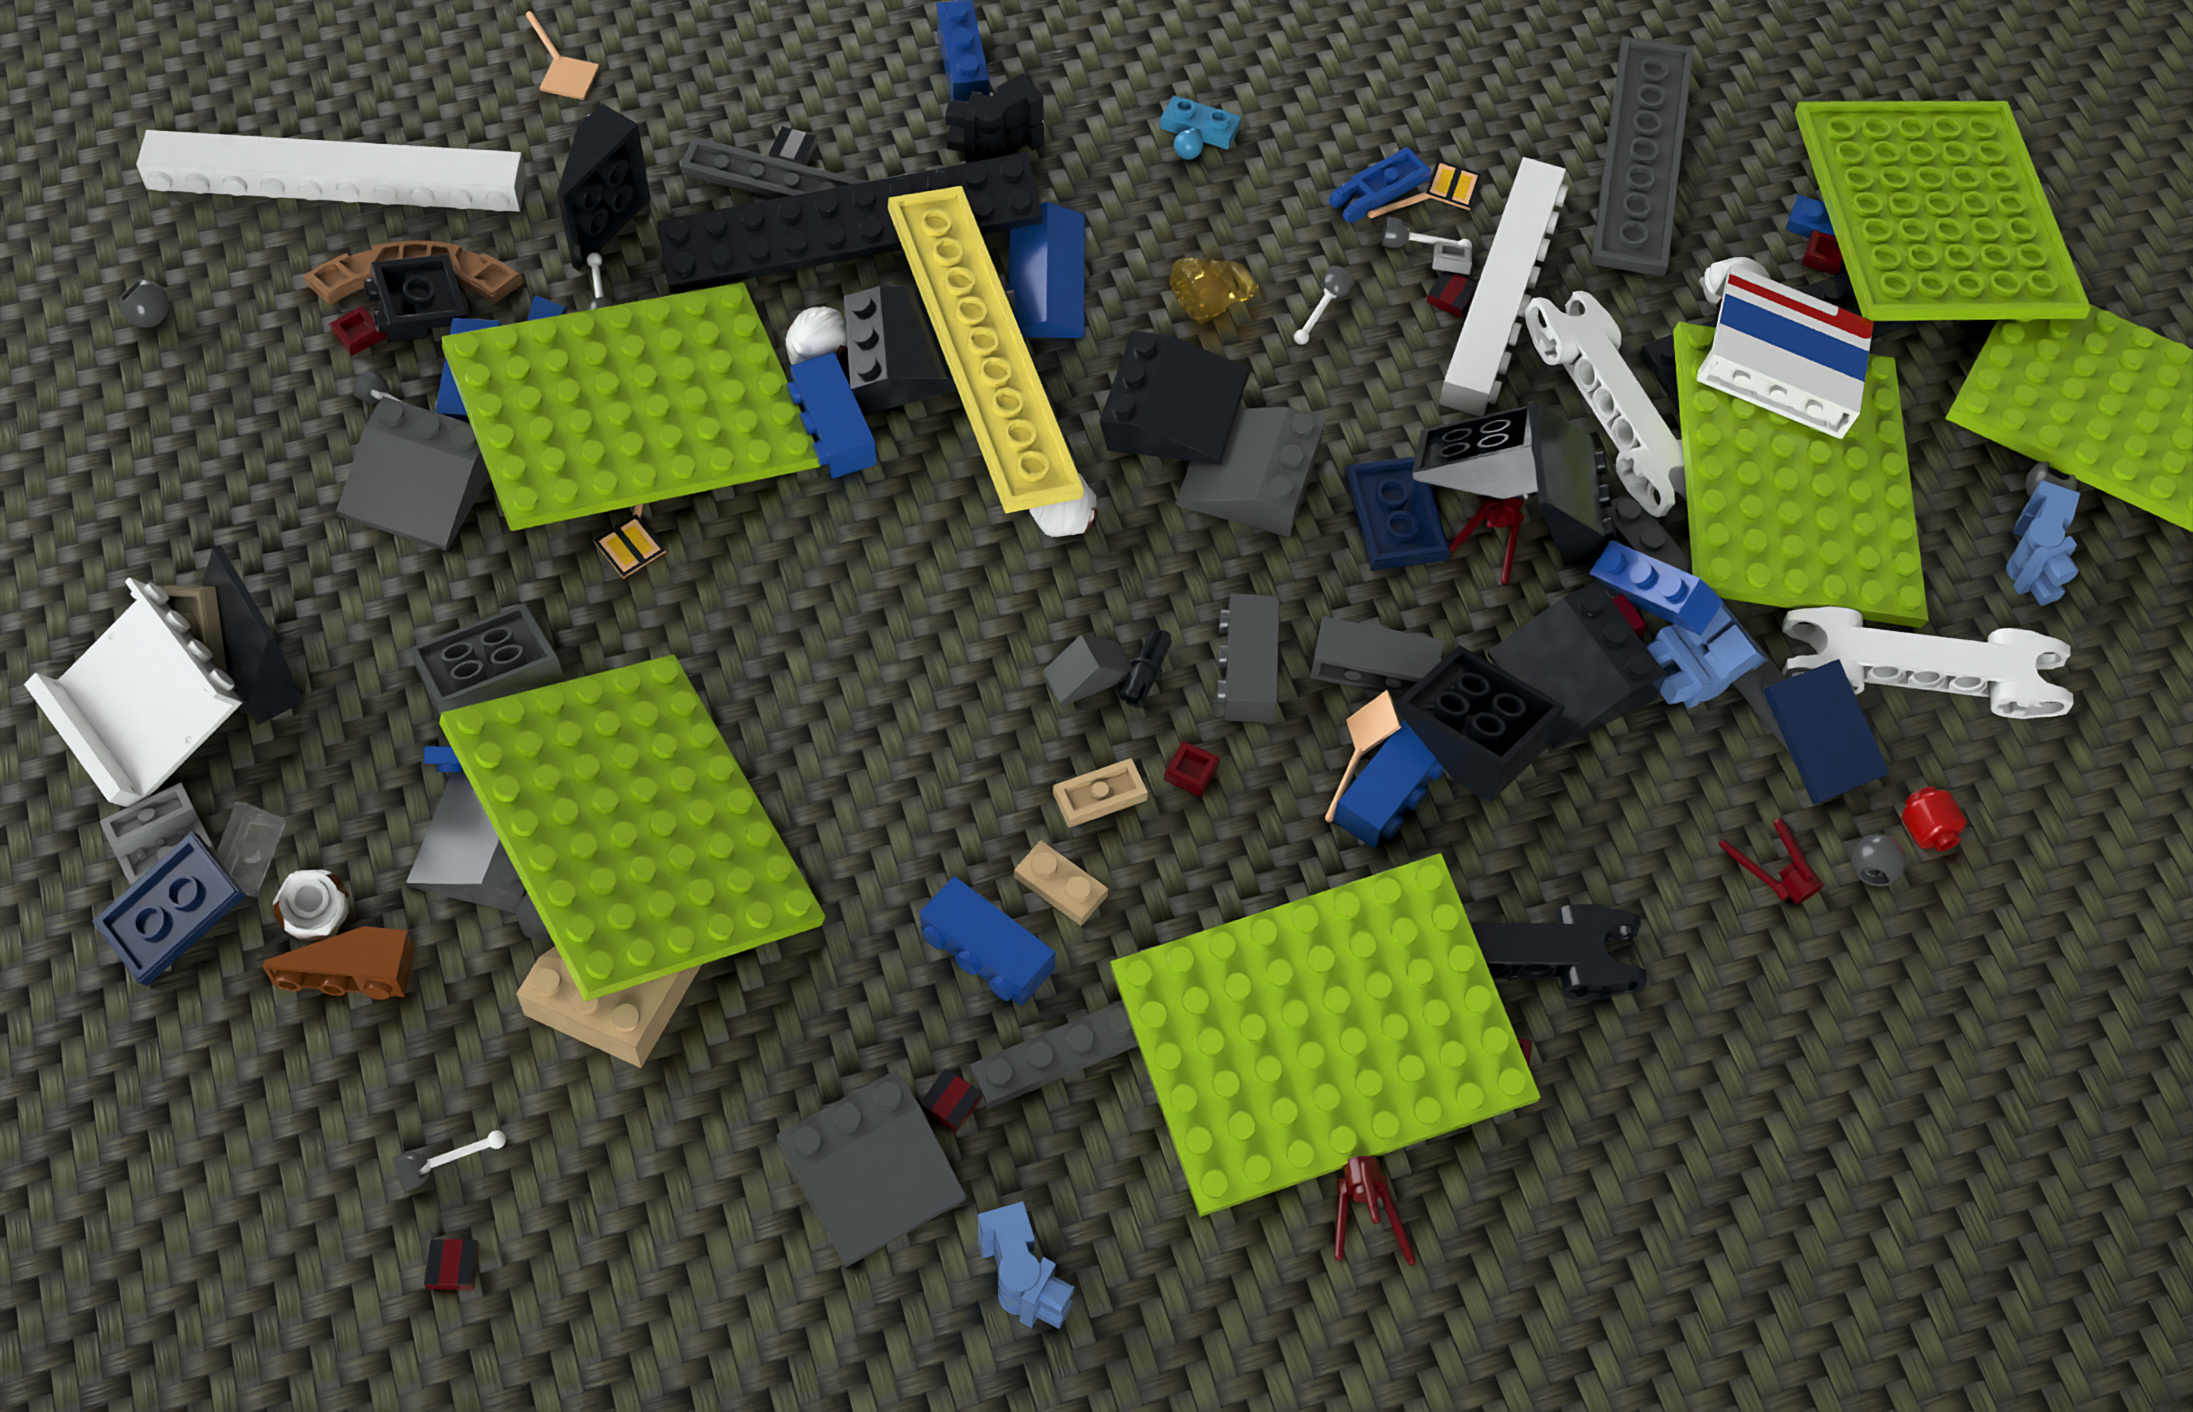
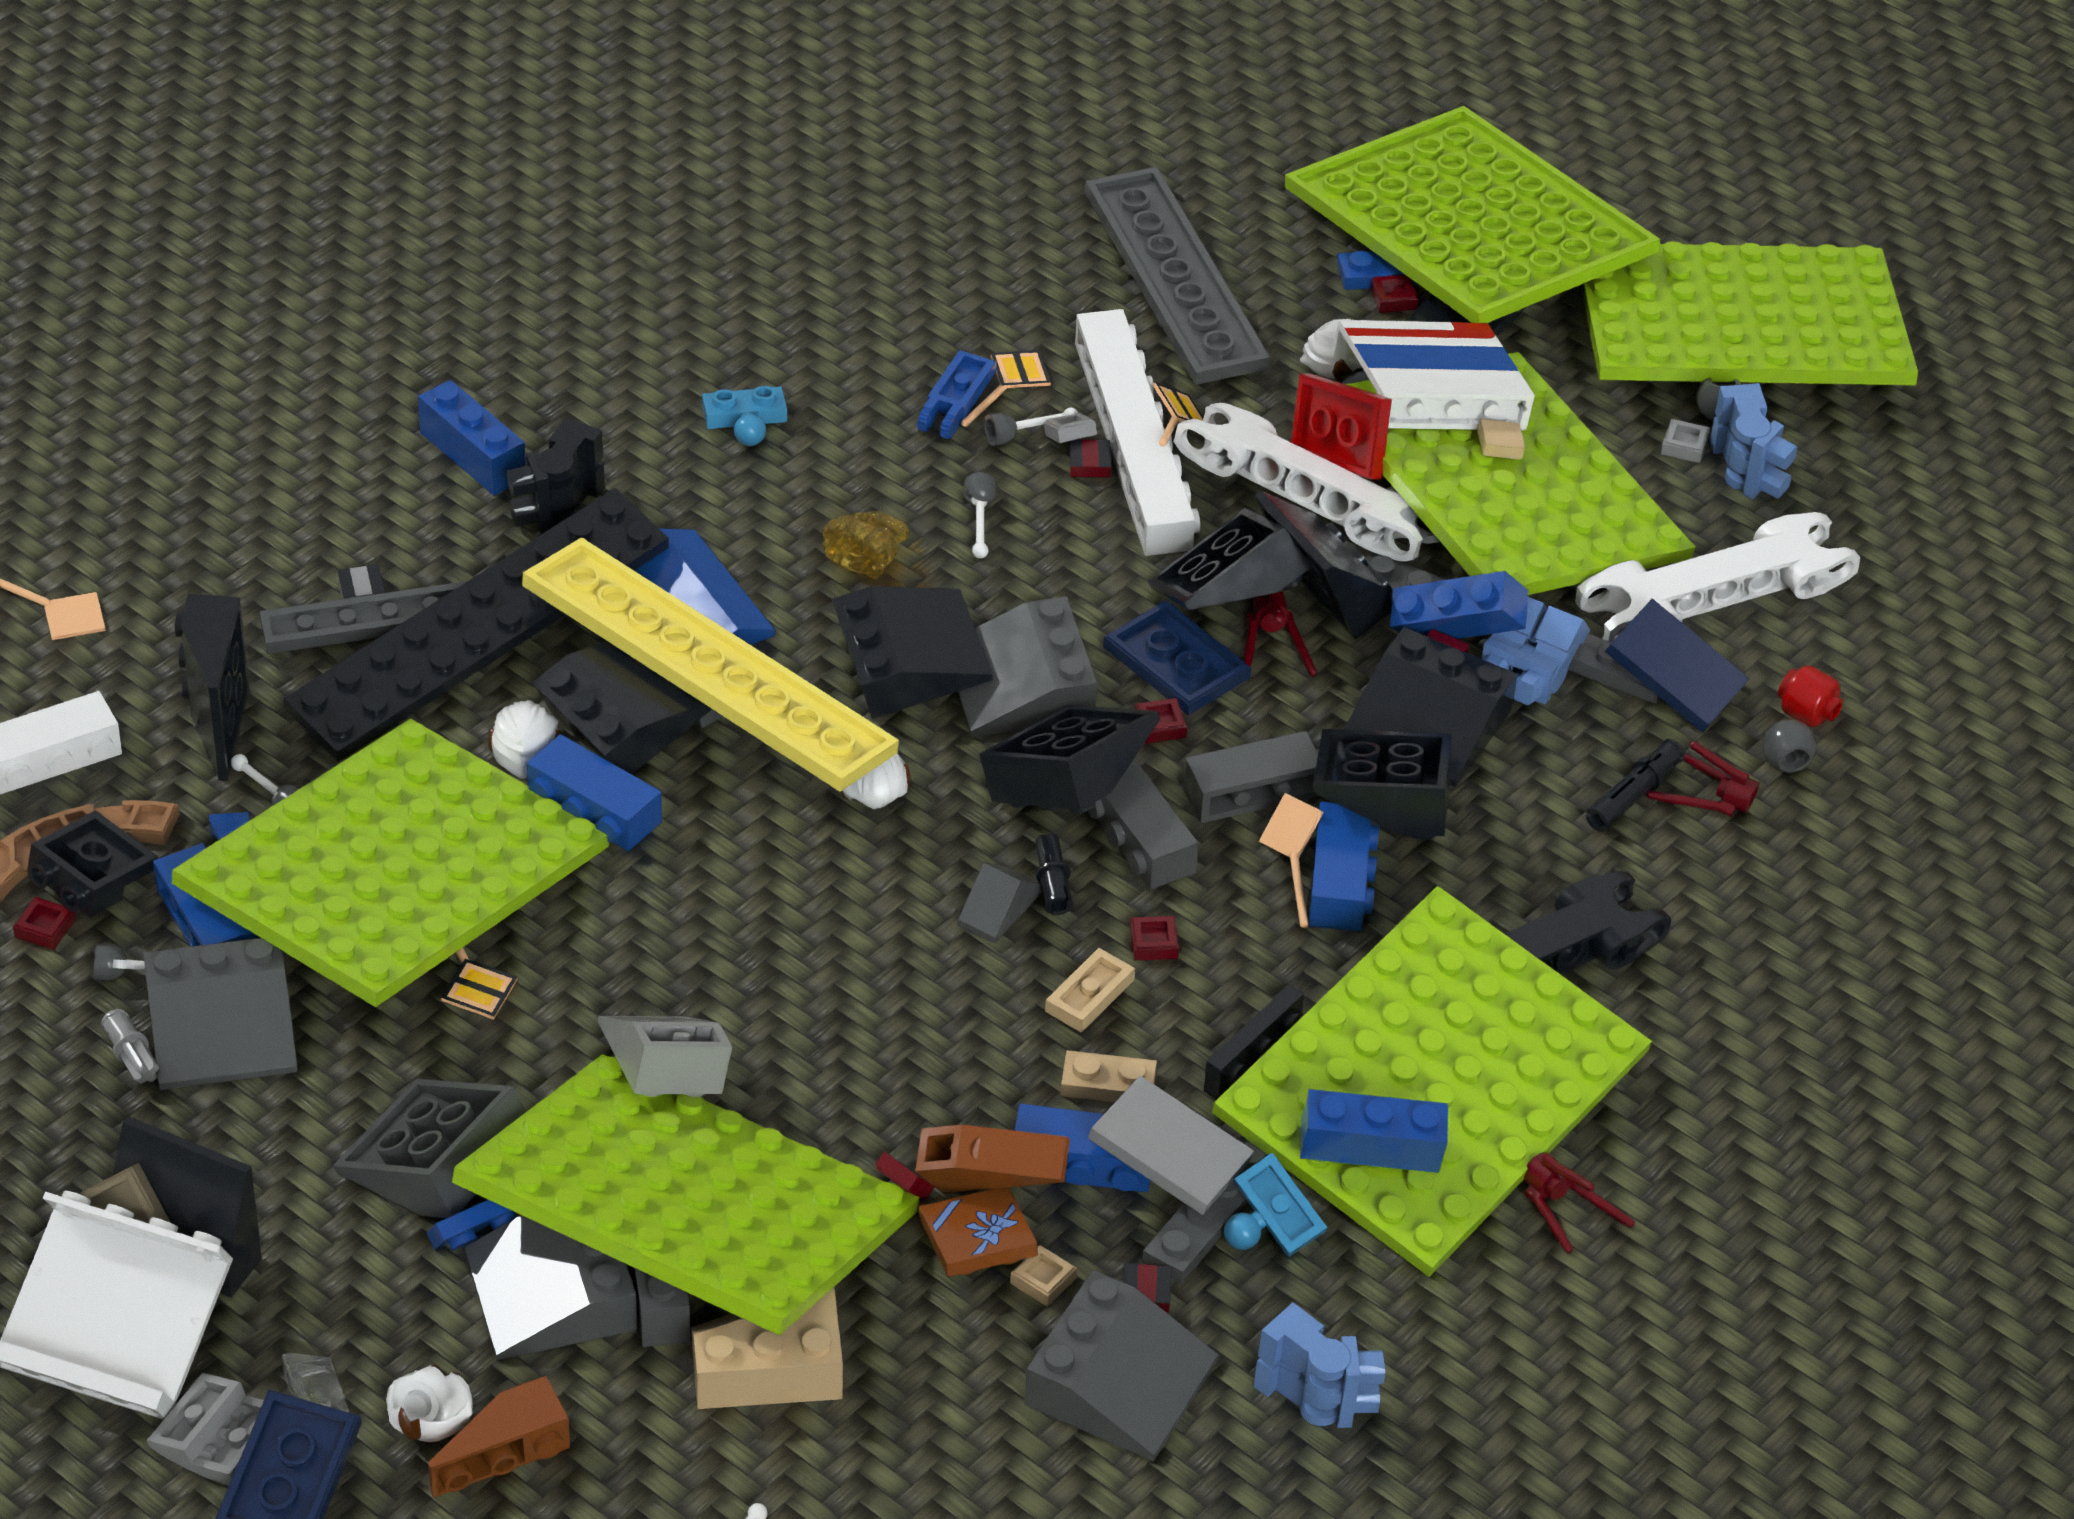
camera: 30 degrees left, 15 degrees down
(334, 468) = (130, 1046): none -> light grey axle
(708, 680) = (669, 1053): none -> light grey slope
(825, 890) = (904, 1176): none -> dark red tile
(845, 974) = (978, 1231): none -> dark orange tile
(877, 1041) = (1043, 1276): none -> tan tile
(890, 917) = (989, 1158): none -> dark orange slope
(1047, 983) = (1171, 1144): none -> light grey tile
(1105, 1085) = (1277, 1206): none -> dark azure plate
(1199, 914) = (1252, 1041): none -> black plate
(1217, 1065) = (1374, 1130): none -> blue brick
(1221, 568) = (1067, 757): none -> black slope
(1341, 566) = (1171, 722): none -> dark red tile
(1557, 281) = (1180, 407): none -> piece
(1671, 363) = (1342, 424): none -> red tile
(1727, 824) = (1646, 775): none -> black pin
(1807, 439) = (1501, 439): none -> tan tile
(1993, 510) = (1685, 440): none -> light grey tile

